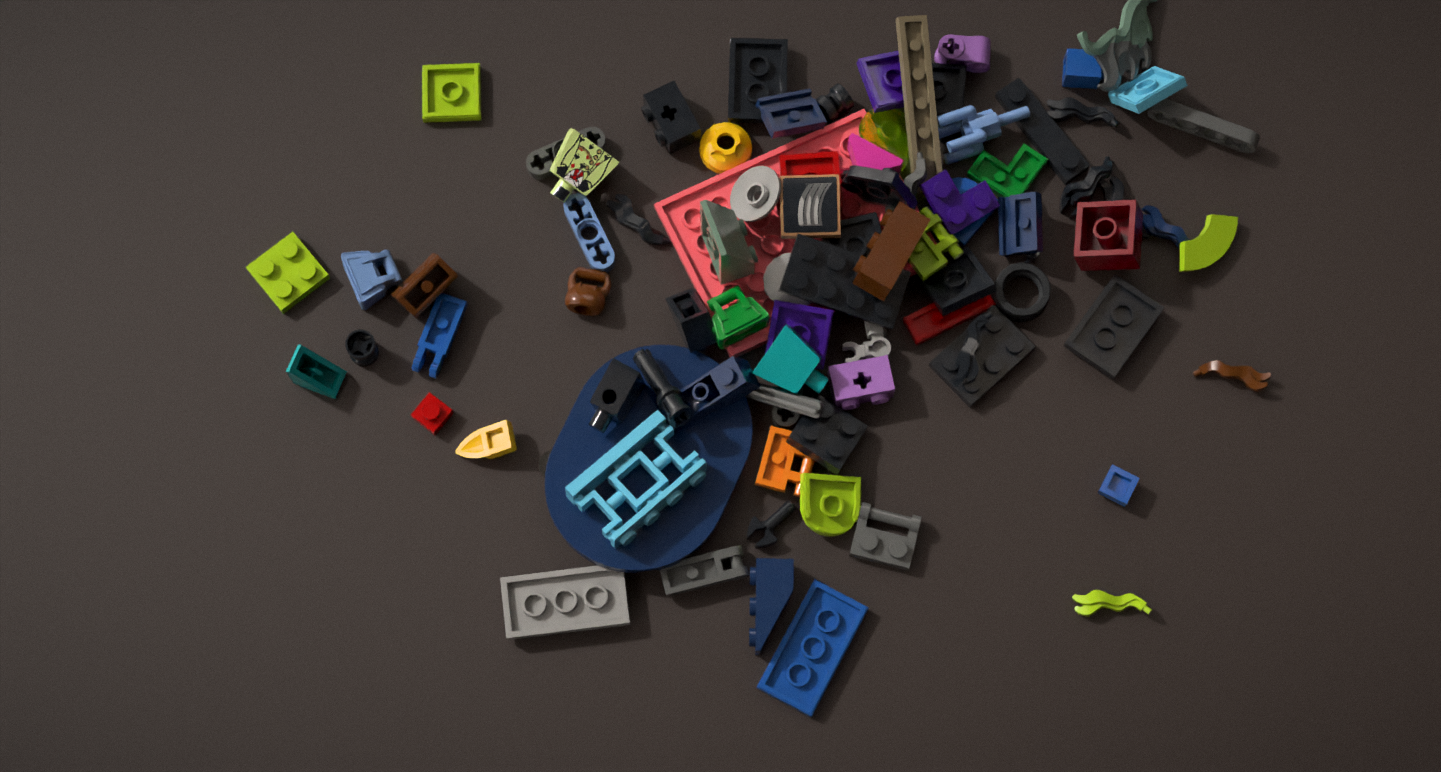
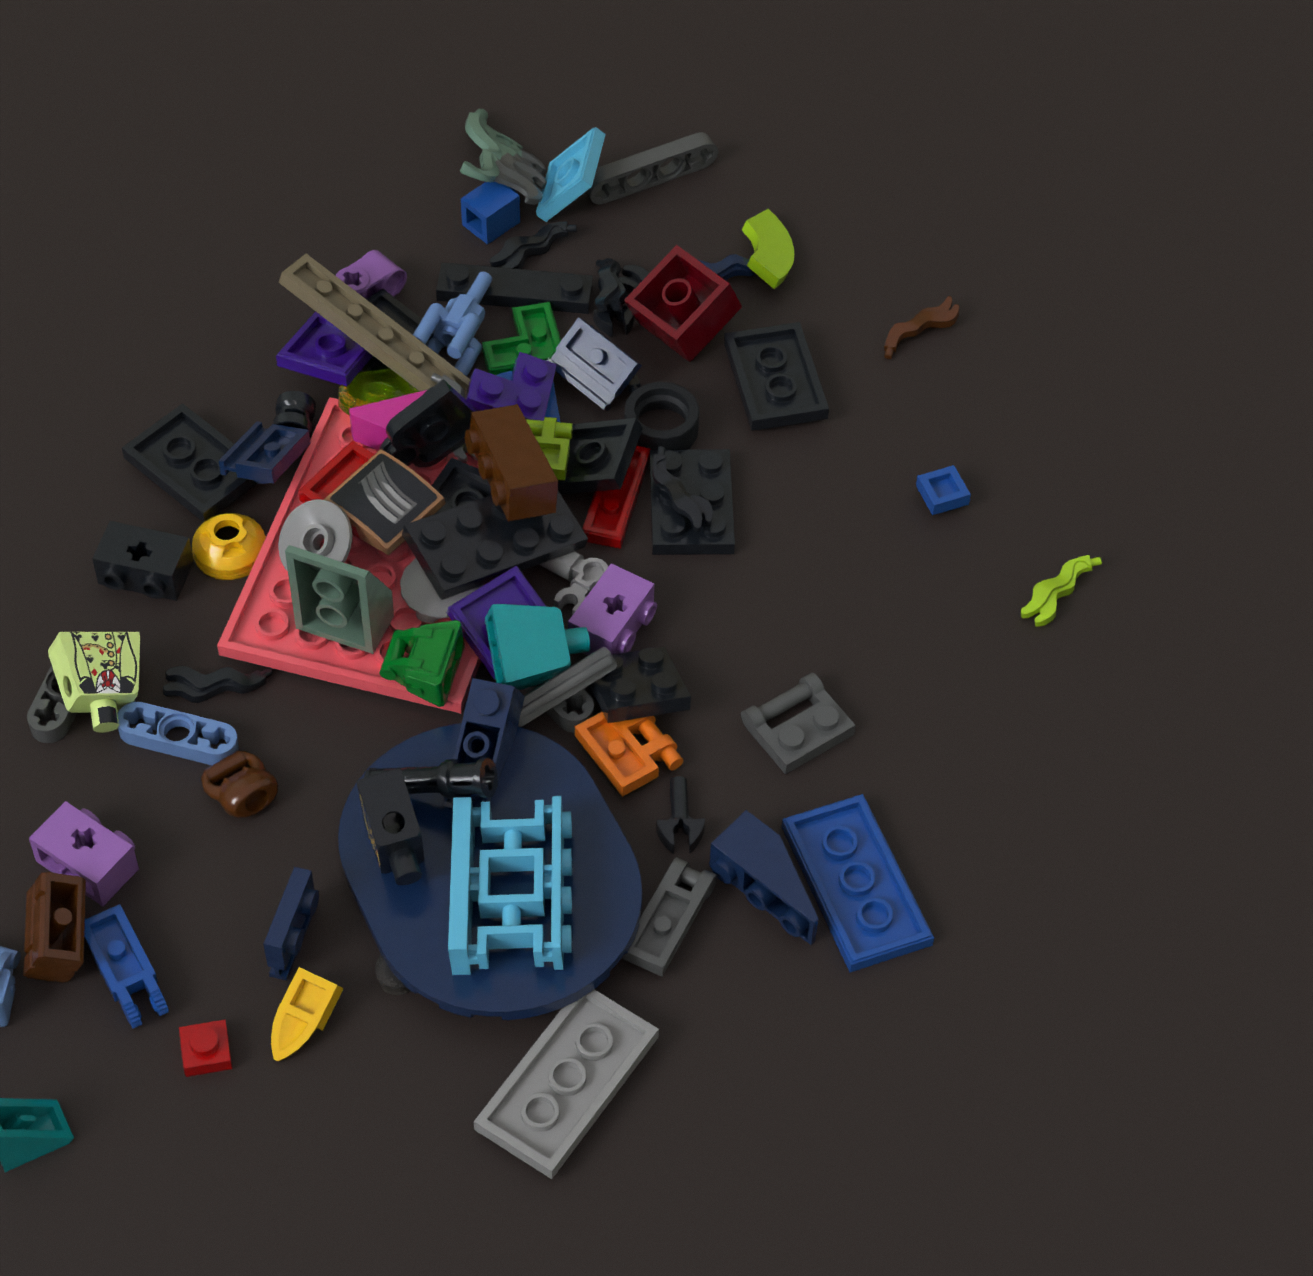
camera: 50 degrees left, 20 degrees down
(360, 341) = (42, 1048): black wheel -> none
(475, 241) = (81, 846): none -> medium lavender brick
(527, 392) = (290, 923): none -> dark blue plate
(692, 320) = (382, 709): black slope -> none
(830, 502) = (712, 740): lime tile -> none

